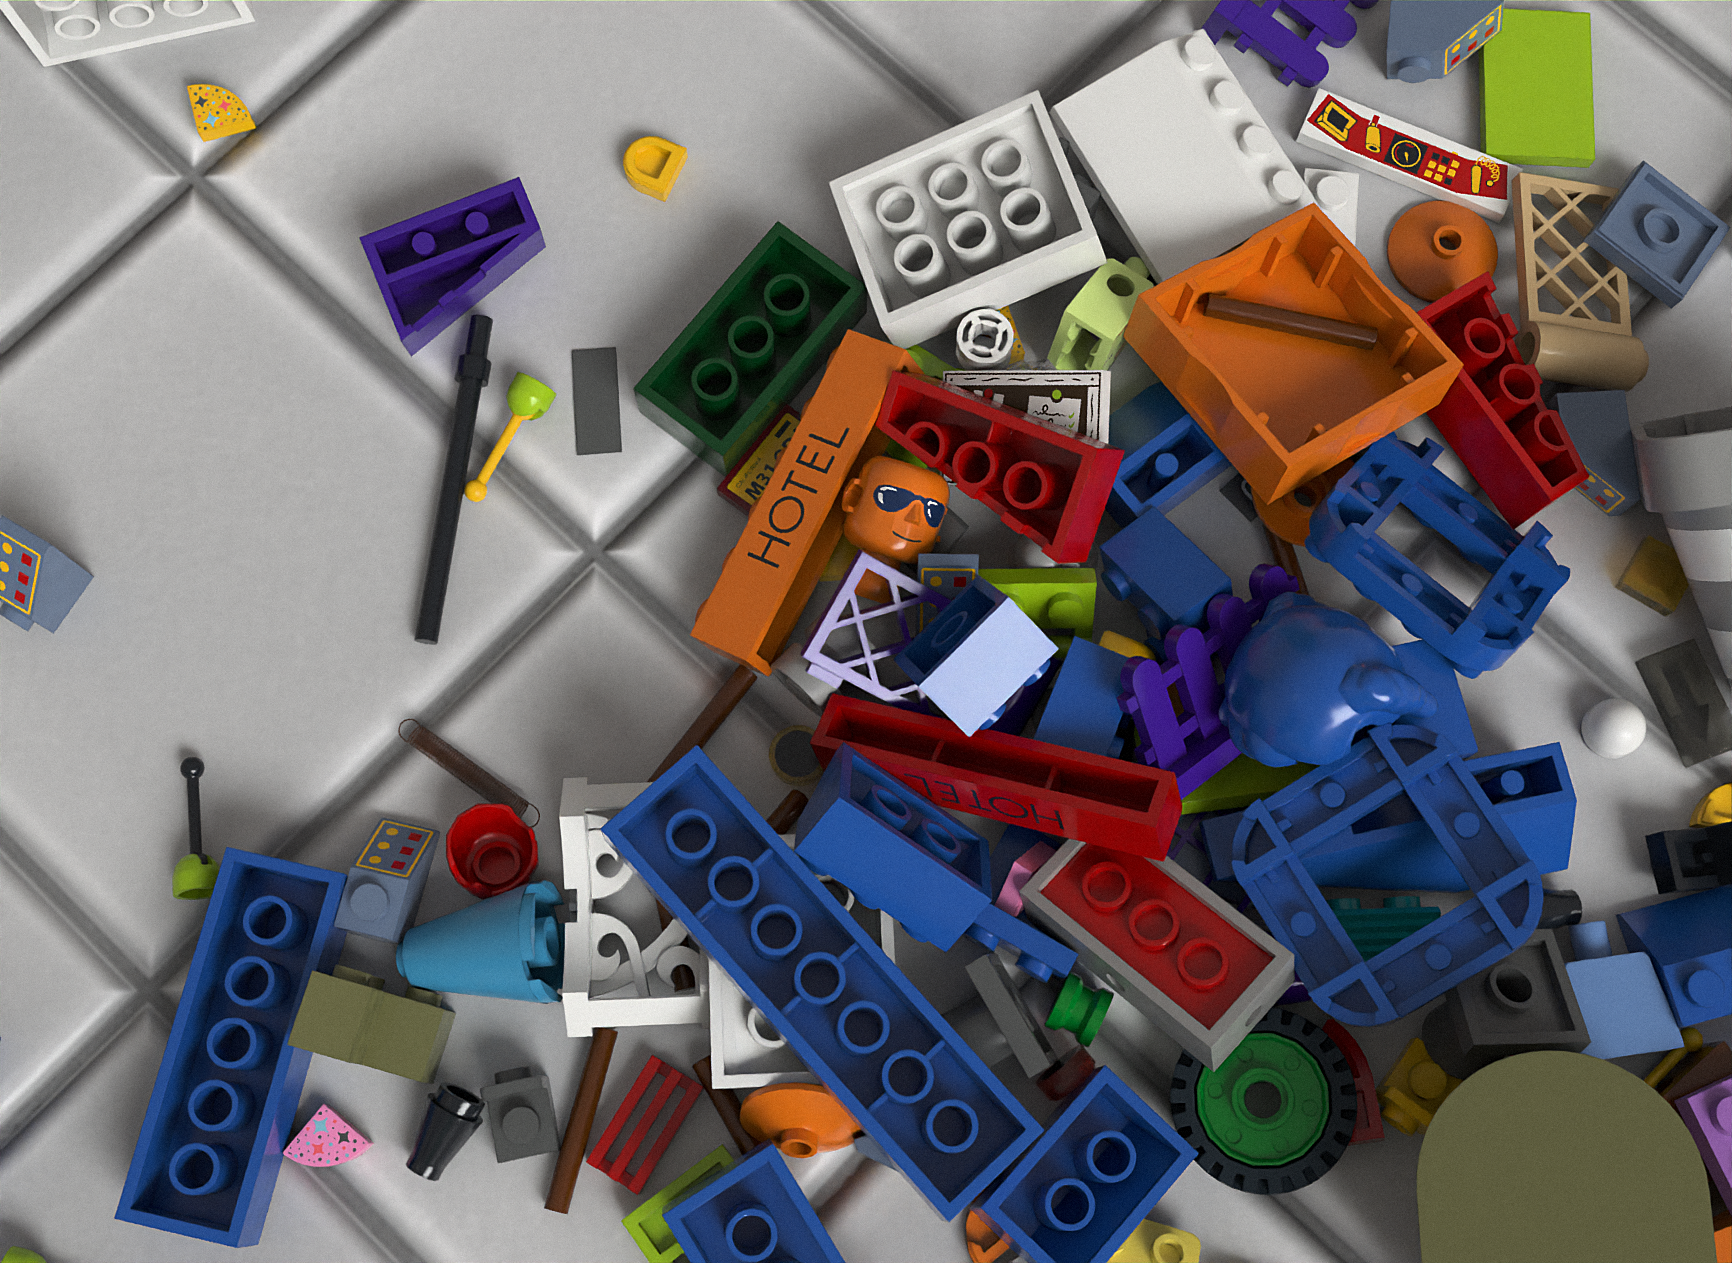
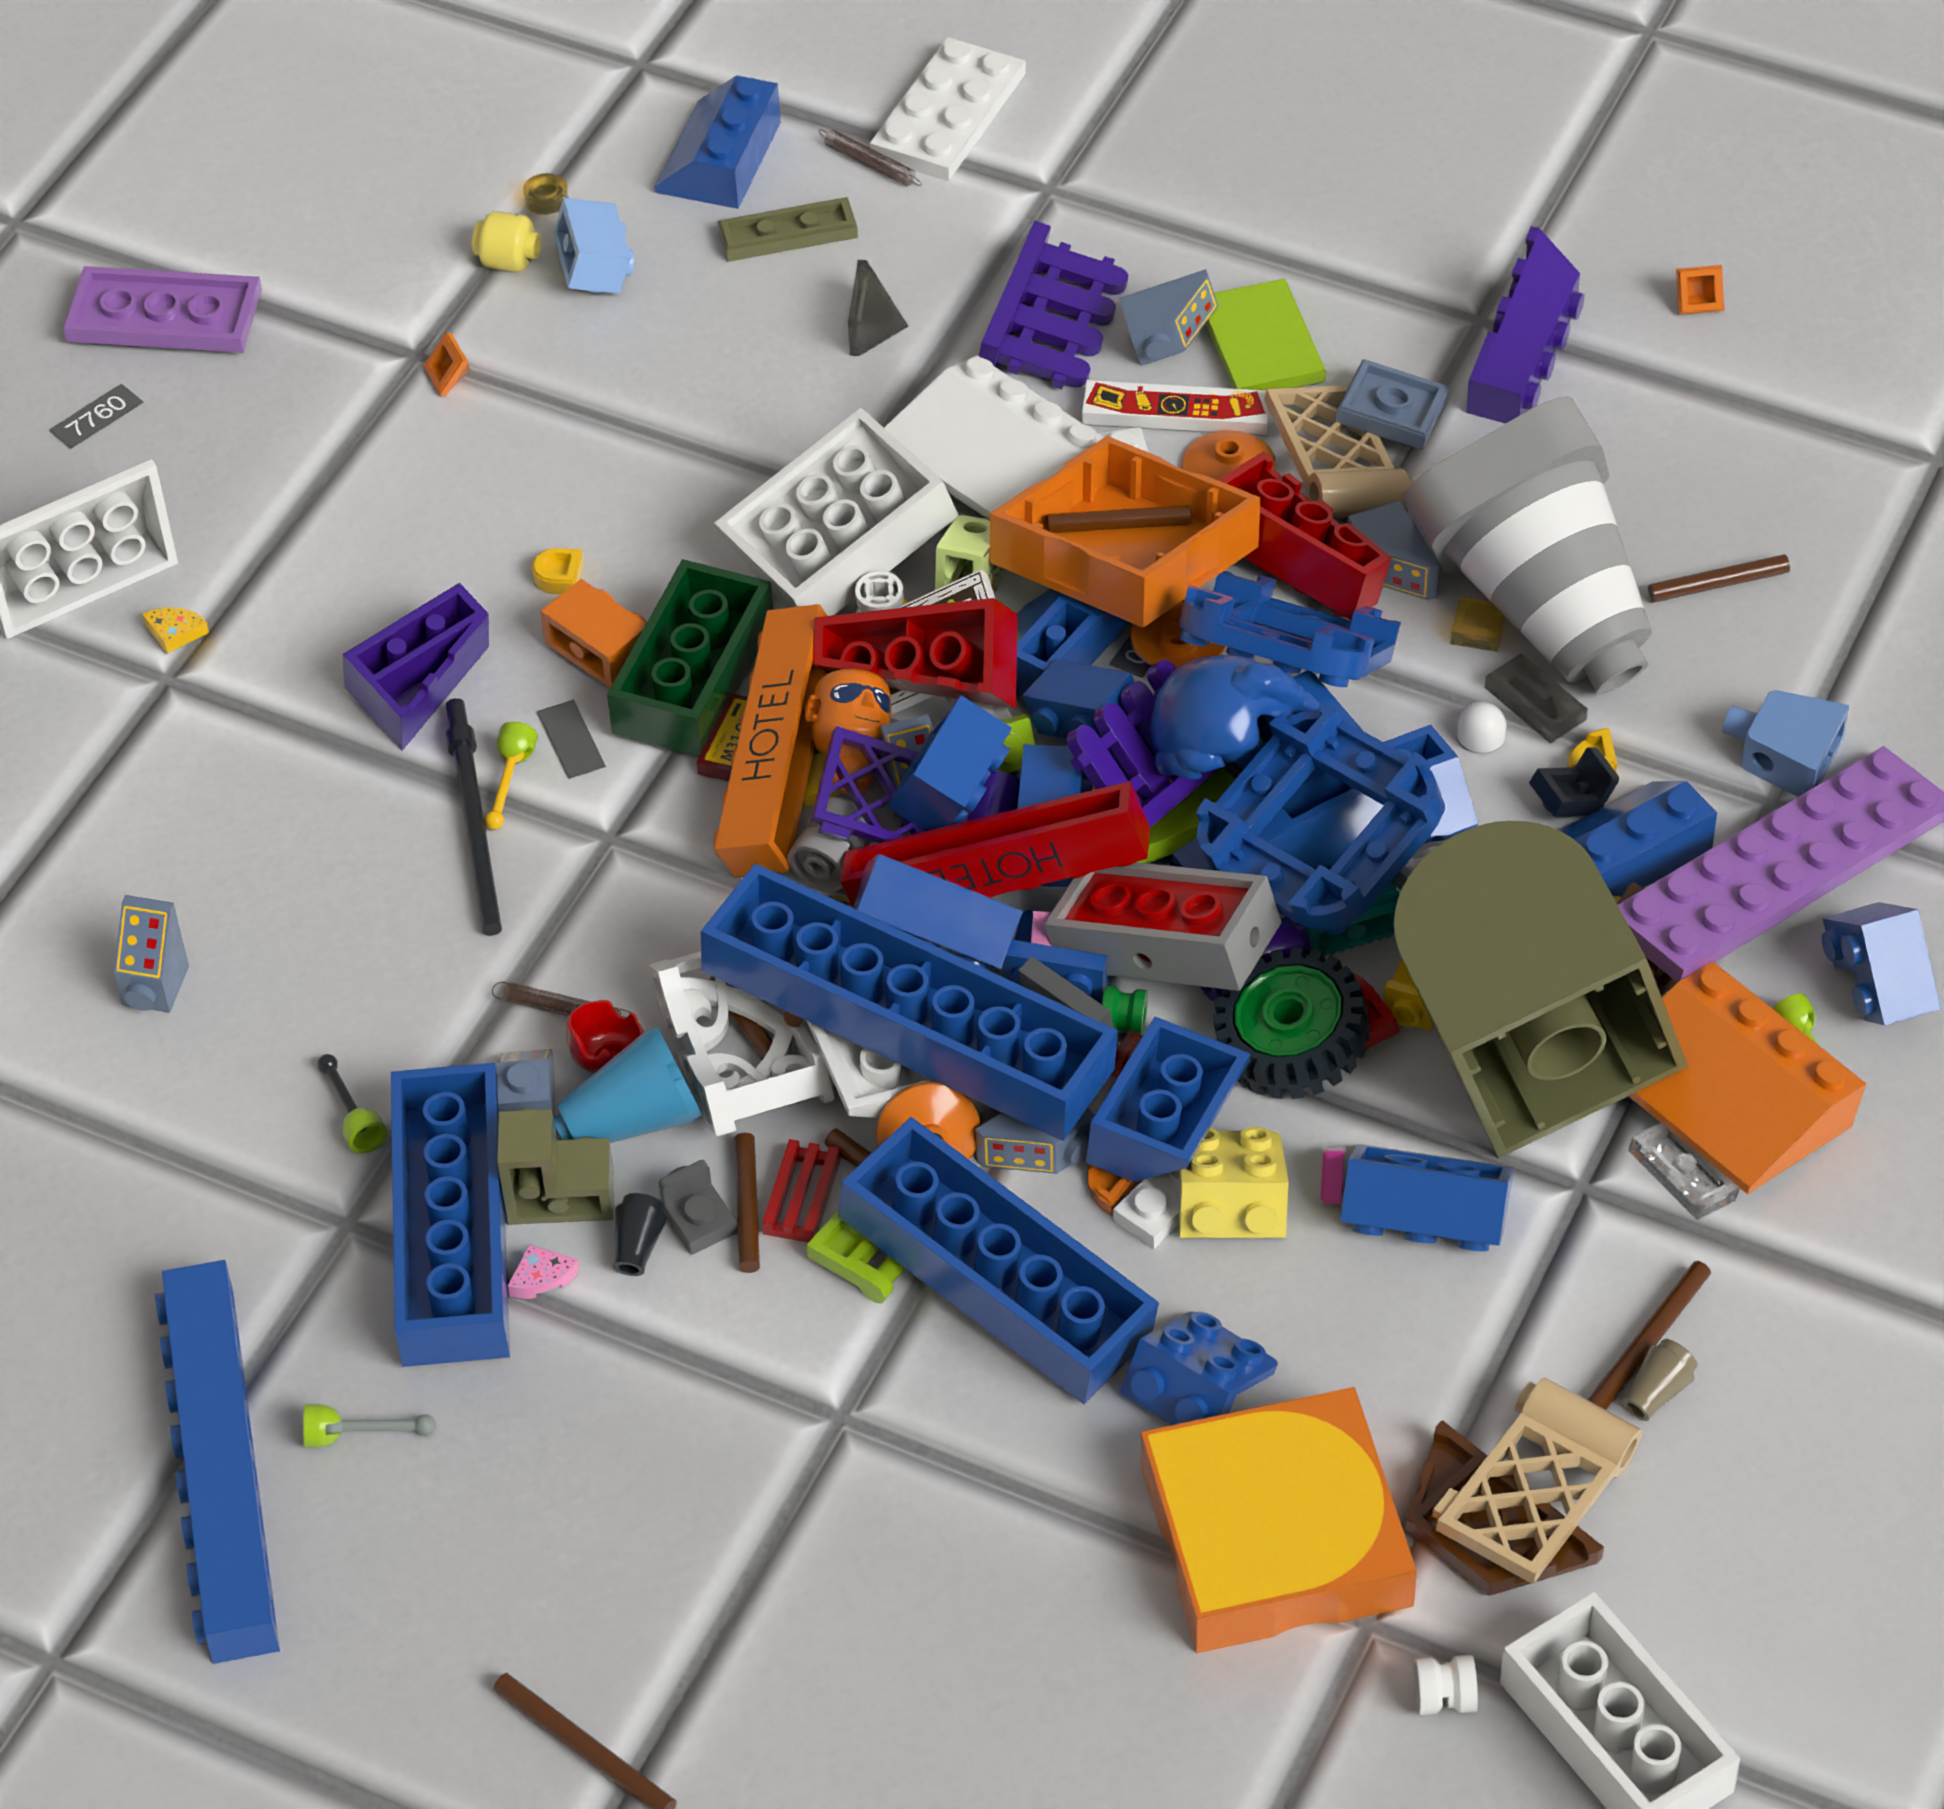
camera: 15 degrees left, 25 degrees down
(658, 275) = (591, 630): none -> orange brick

